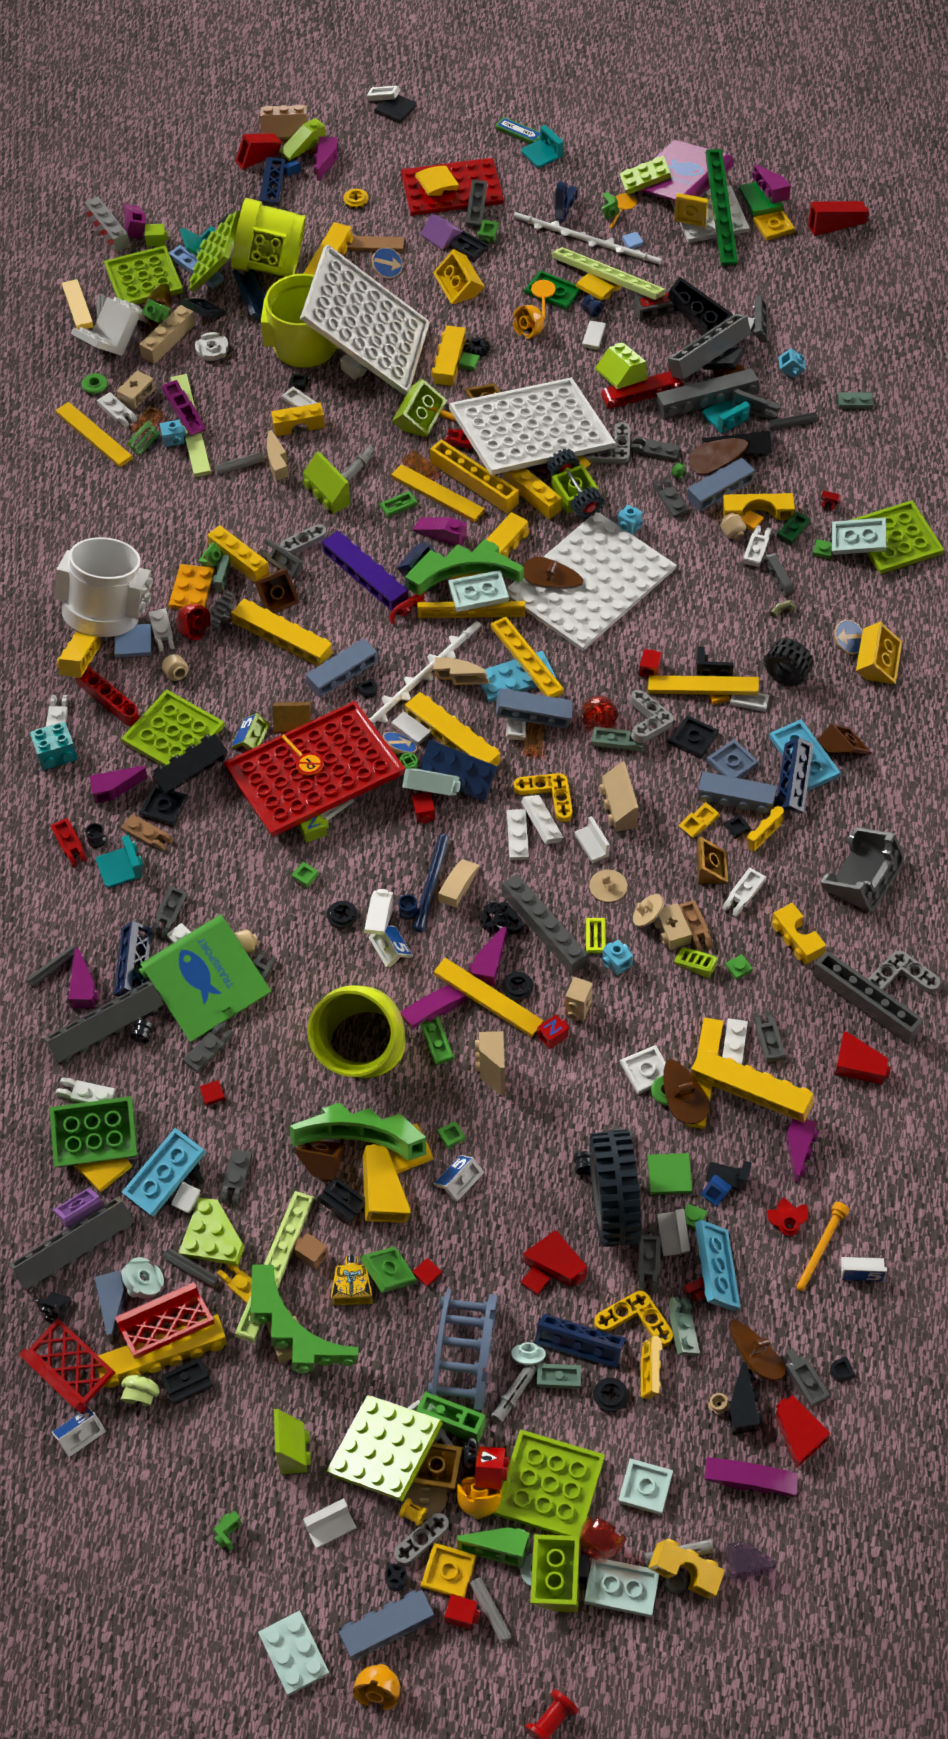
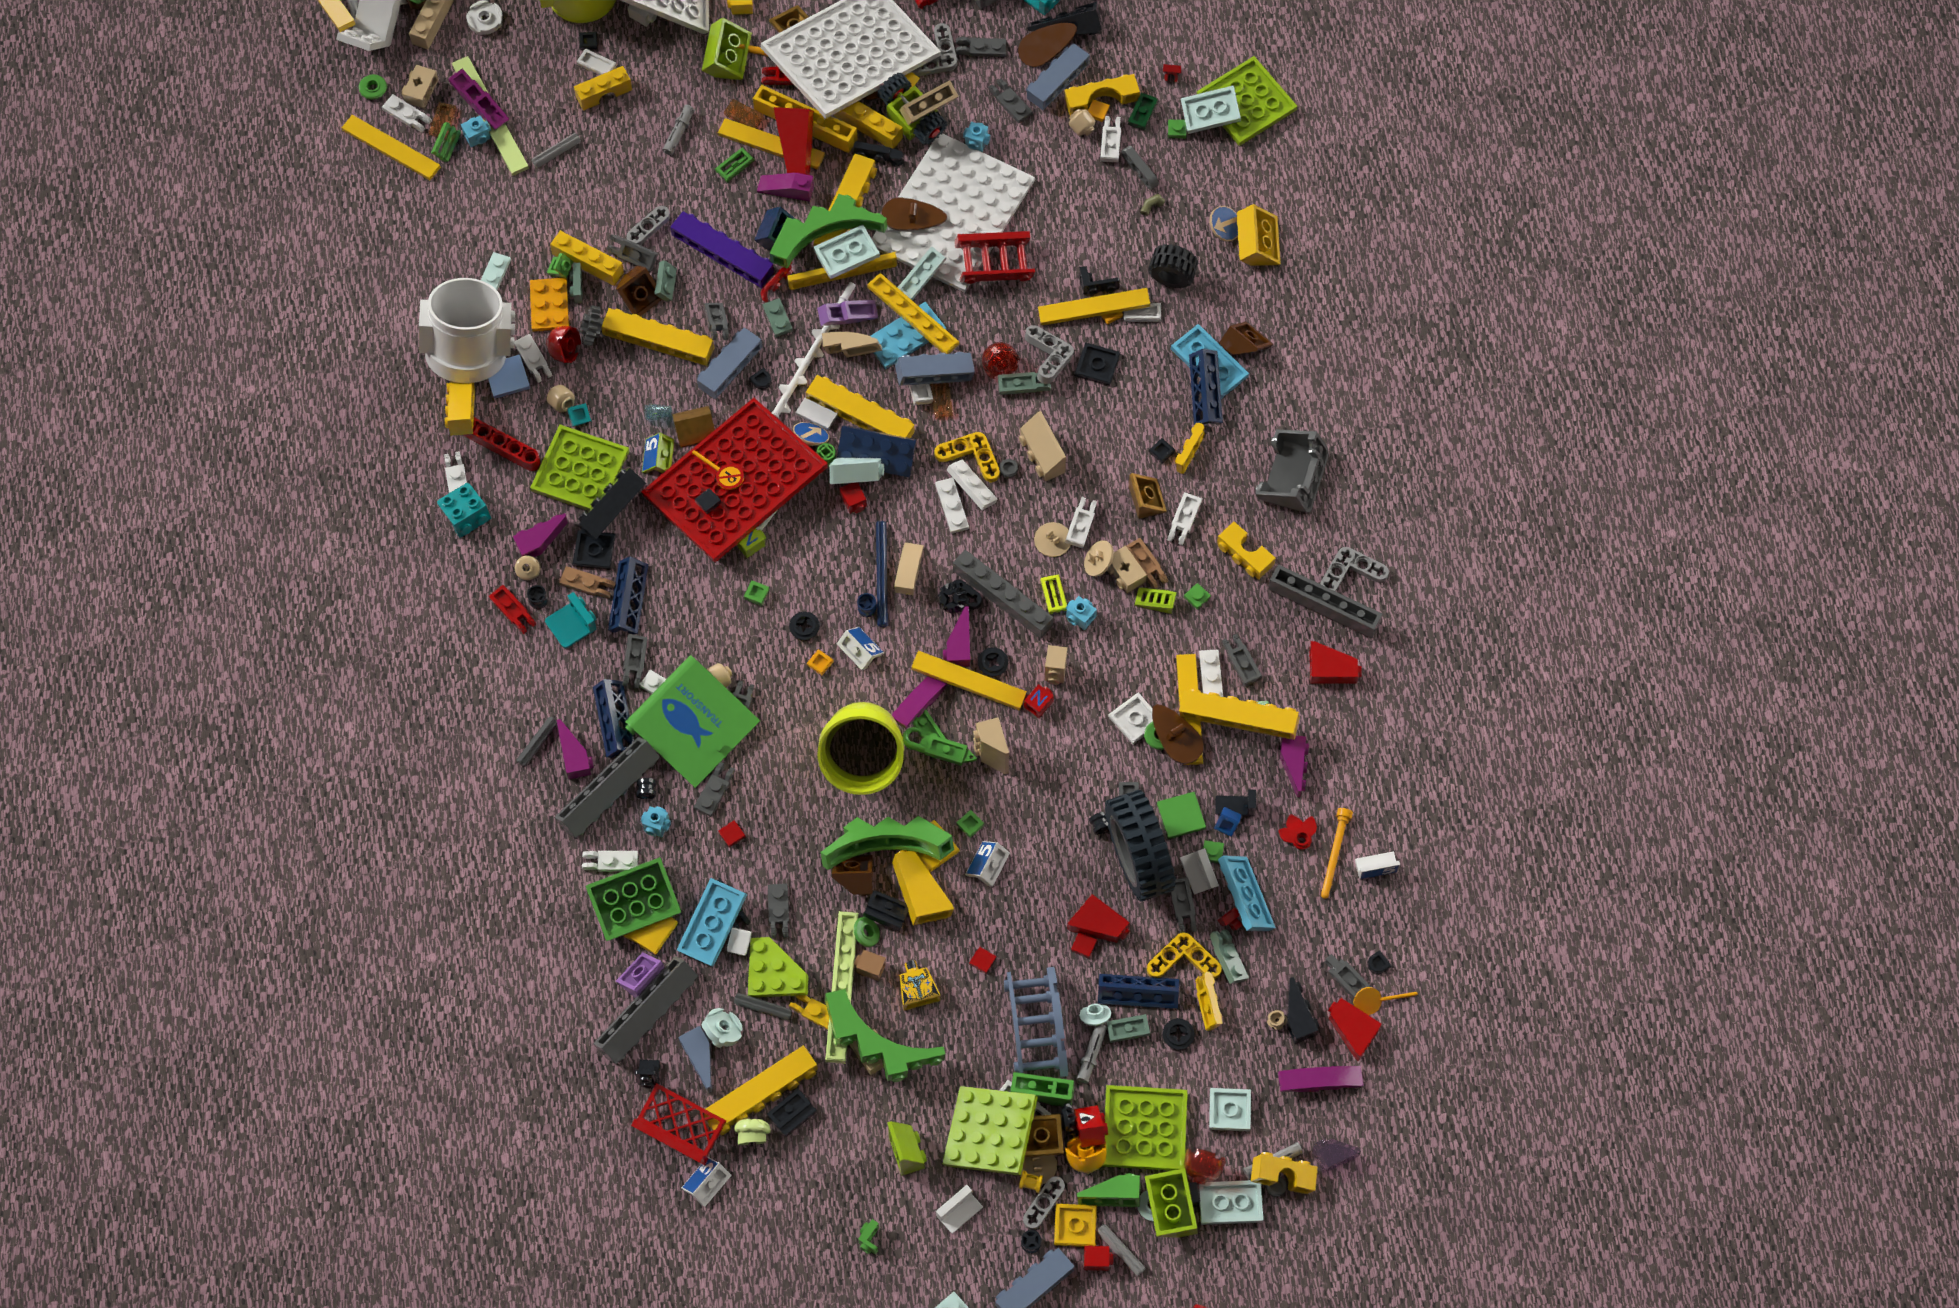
camera: 15 degrees left, 10 degrees up
(94, 807) = (533, 565): none -> tan head
(140, 1064) = (658, 826): none -> medium azure brick
(152, 551) = (496, 269): none -> light aqua plate
(160, 1310) = (747, 1054): red fence -> none
(176, 850) = (623, 590): none -> dark blue fence
(187, 685) = (579, 415): none -> teal plate
(260, 696) = (655, 411): none -> clear light blue cone
(276, 457) = (593, 136): tan slope -> none
(282, 780) = (708, 501): none -> black tile
(304, 587) = (665, 281): none -> sand green plate
(322, 1213) = (872, 929): none -> bright green piece
(326, 483) = (655, 159): lime slope -> none
(340, 628) = (716, 320): none -> dark grey hinge
(347, 951) = (820, 662): none -> light orange tile
(379, 912) = (842, 618): white slope -> none
(388, 1269) = (947, 966): bright green tile -> none
(399, 638) = (777, 317): none -> sand green plate
(441, 1055) = (940, 748): none -> bright green plate
(460, 486) = (795, 135): none -> red slope
(465, 644) = (847, 312): none -> medium lavender slope
(535, 517) = (879, 153): none -> black hinge
(545, 624) = (922, 273): none -> light aqua plate
(582, 812) = (1008, 468): none -> dark grey tile
(593, 841) = (1027, 497): white panel -> none
(594, 476) = (929, 102): none -> tan brick
(623, 608) = (1001, 241): none -> red fence
(639, 876) = (1080, 524): none -> white hinge
(650, 663) = (1036, 293): red brick -> none
(678, 470) = (1011, 68): bright green plate -> none
(700, 820) = (1124, 452): yellow slope -> none
(732, 760) = (1141, 382): sand blue tile -> none
(736, 792) = (1154, 416): sand blue brick -> none
(757, 1352) = (1300, 965): reddish brown shield -> none
(824, 1406) = (1370, 999): none -> light orange piece

